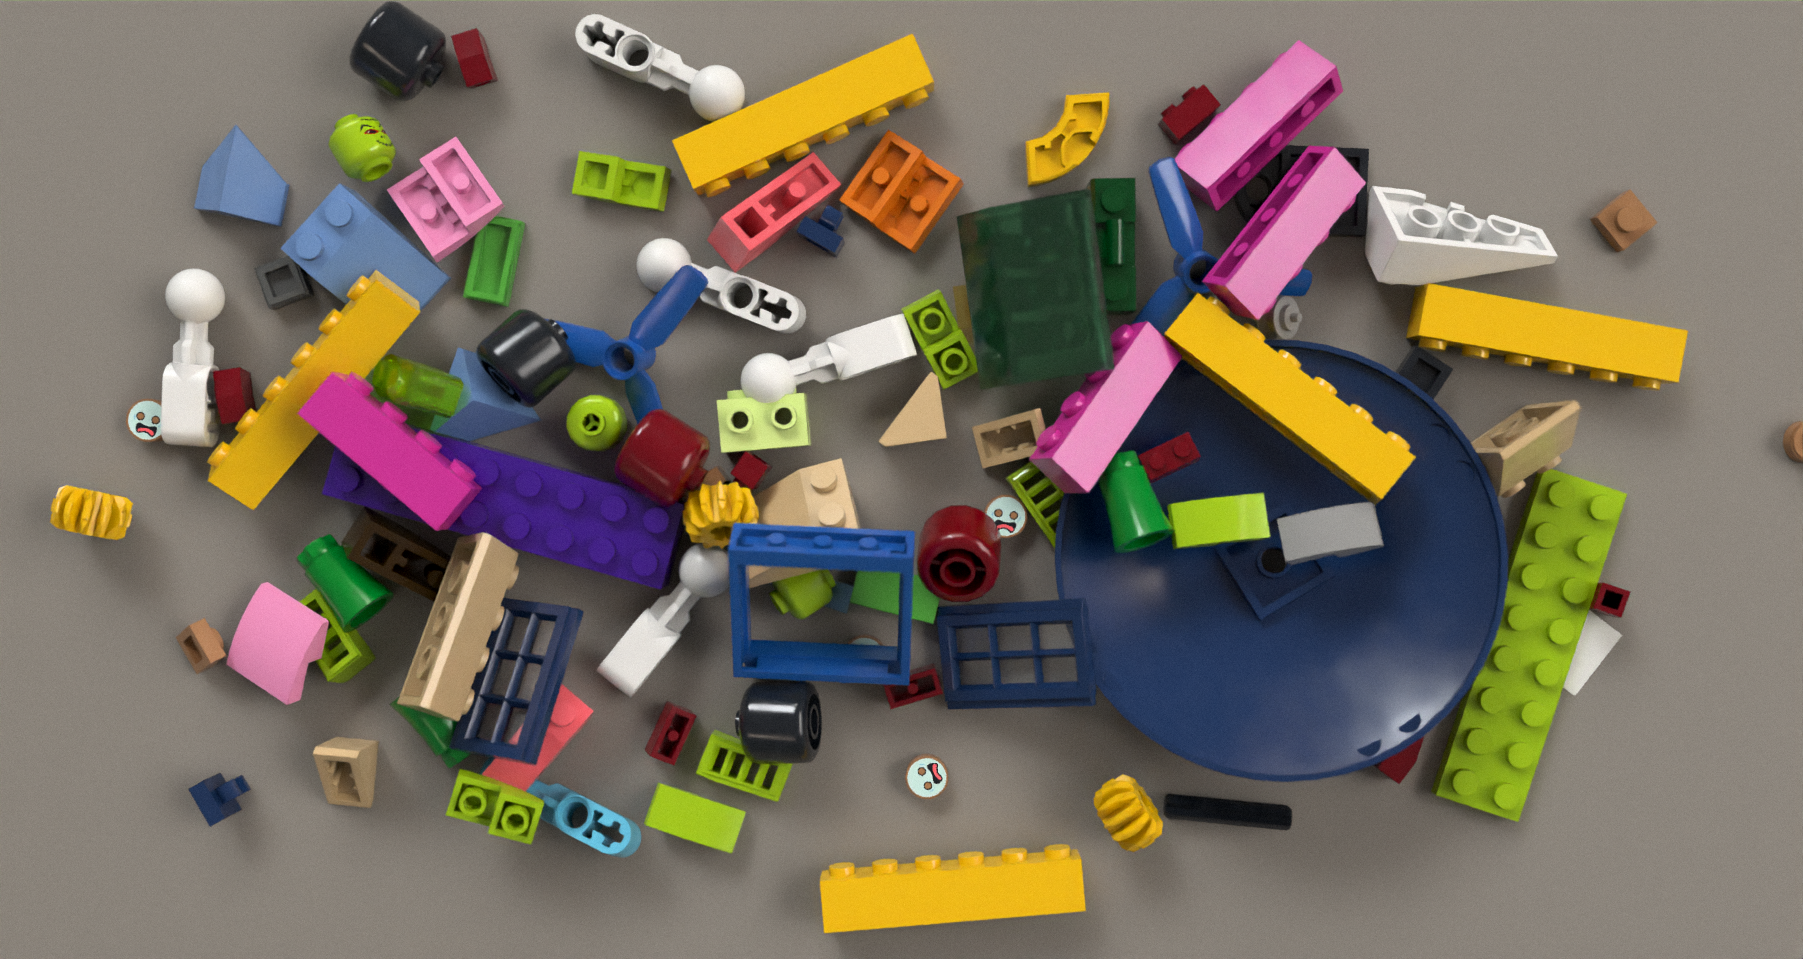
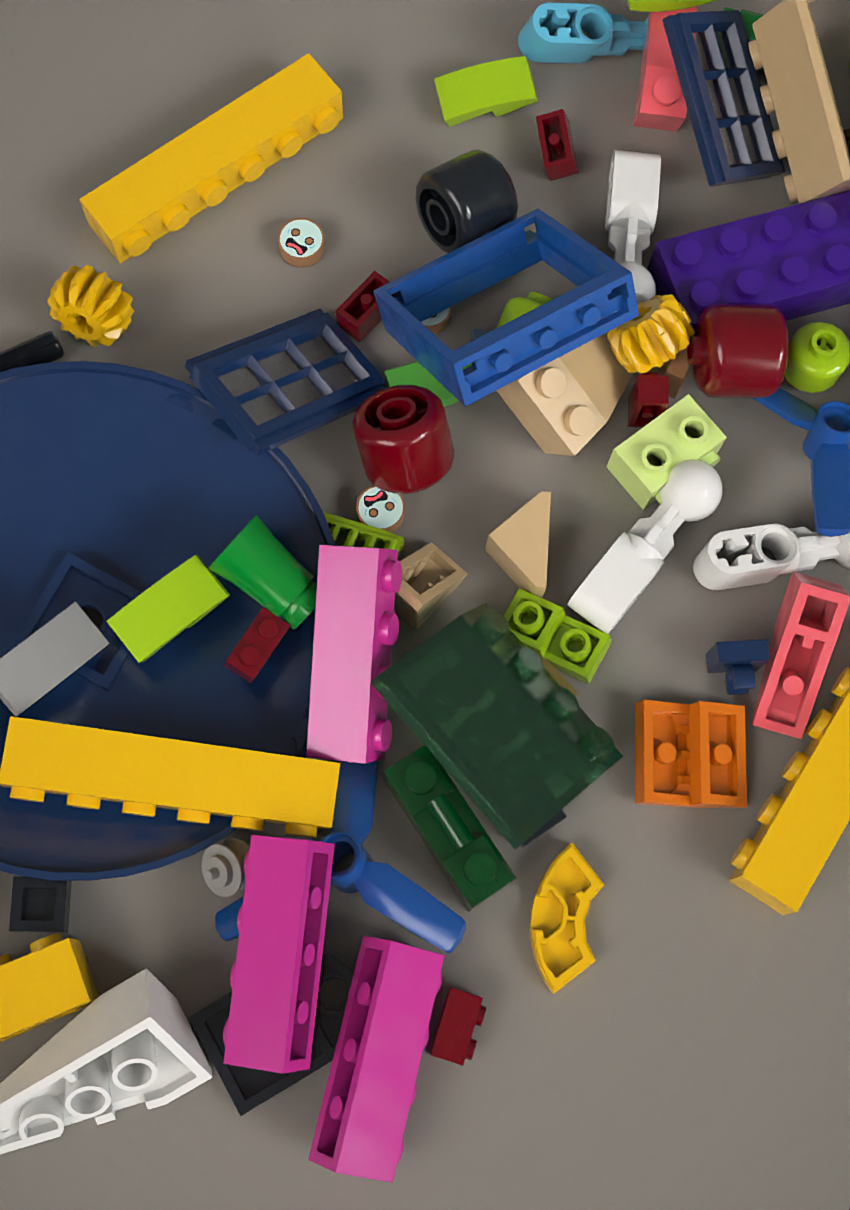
camera: 140 degrees right, 15 degrees down
(724, 776) = (485, 139): lime slope -> none

